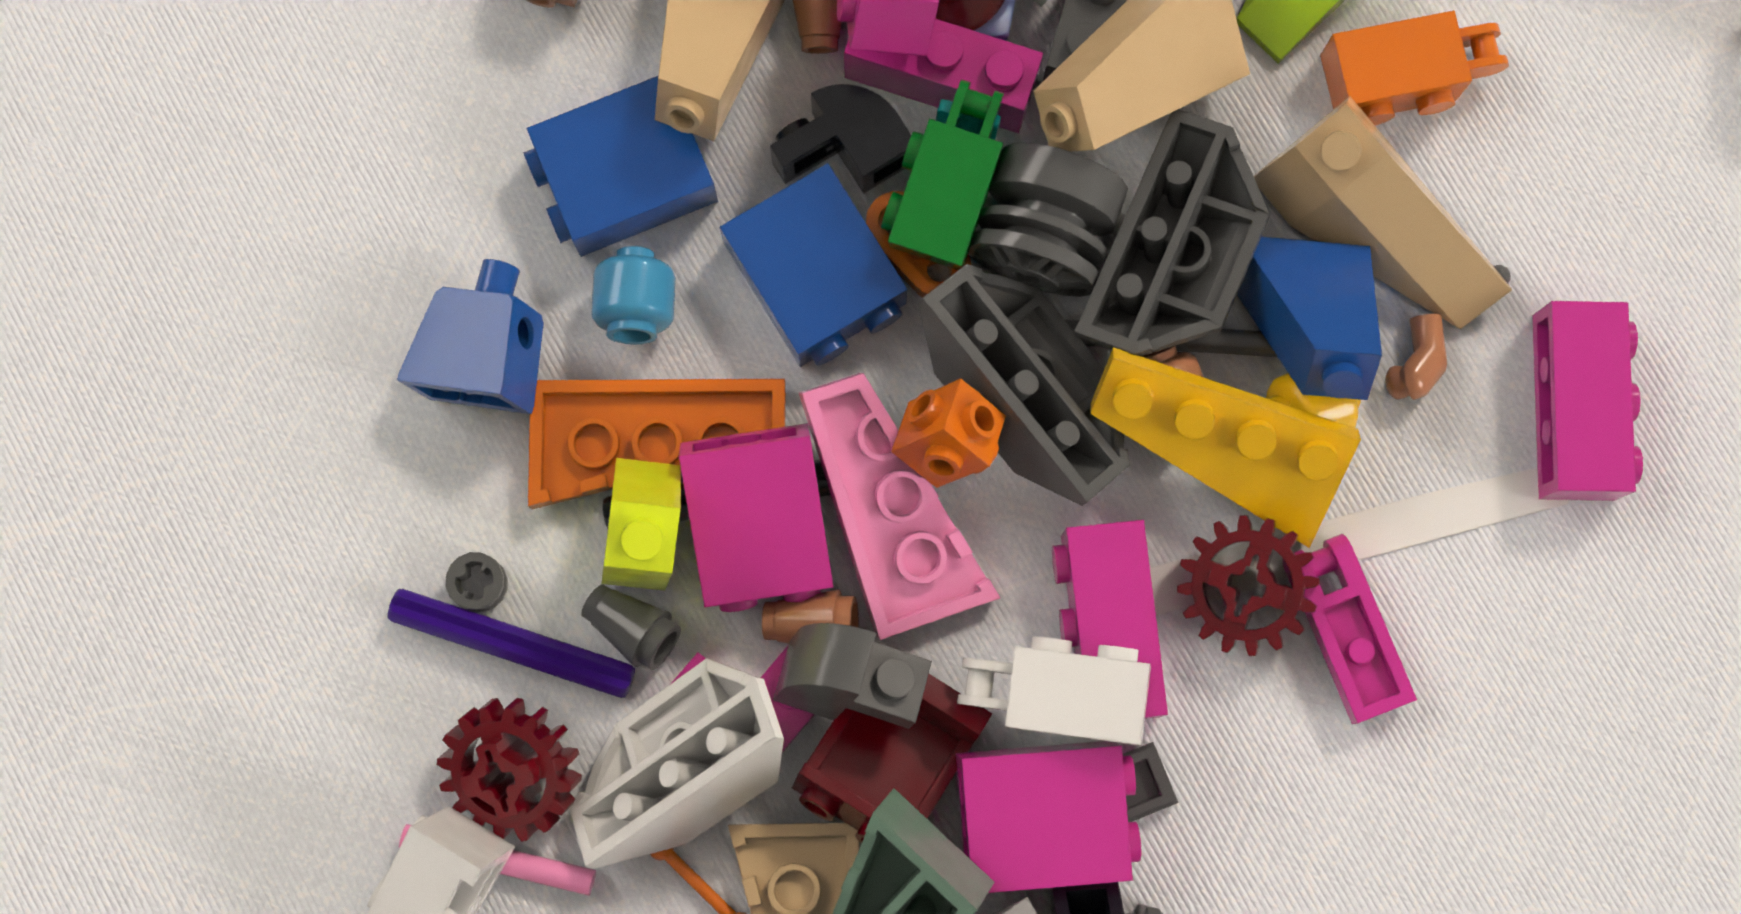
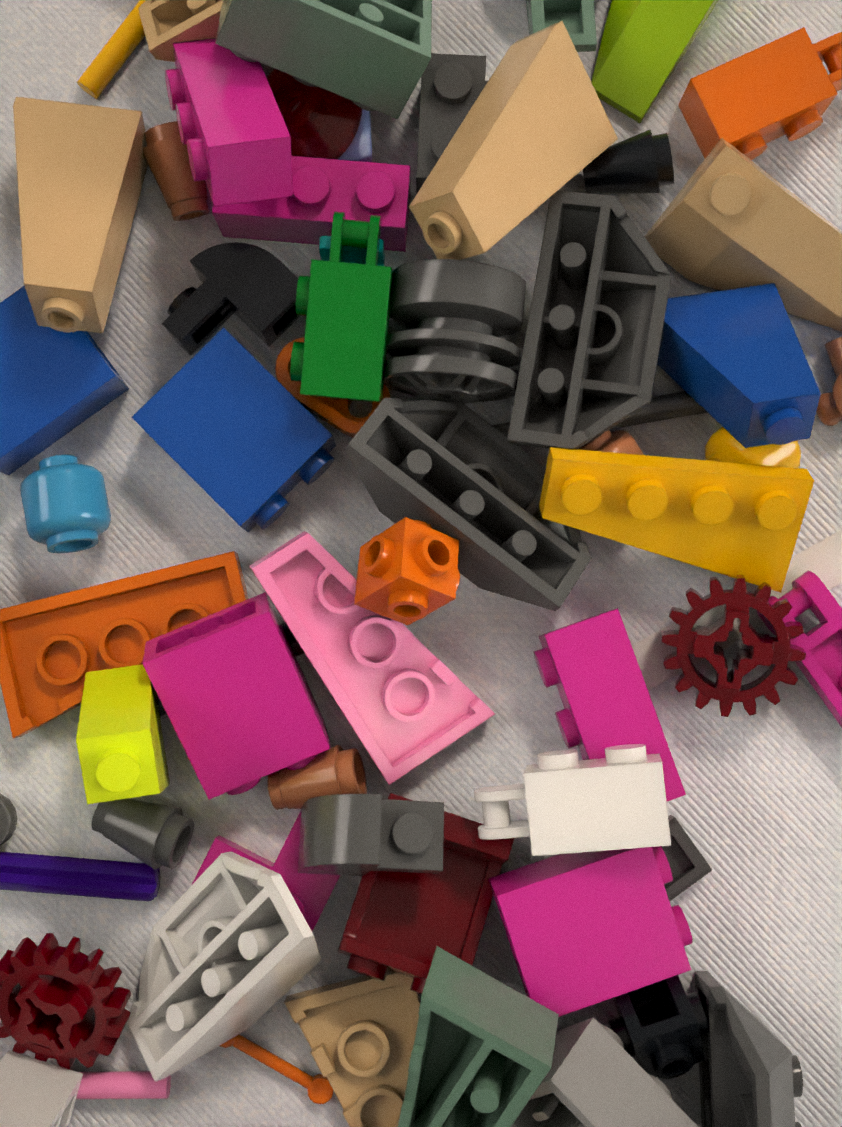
camera: 15 degrees left, 5 degrees up
(1257, 103) = (632, 166): none -> black cone

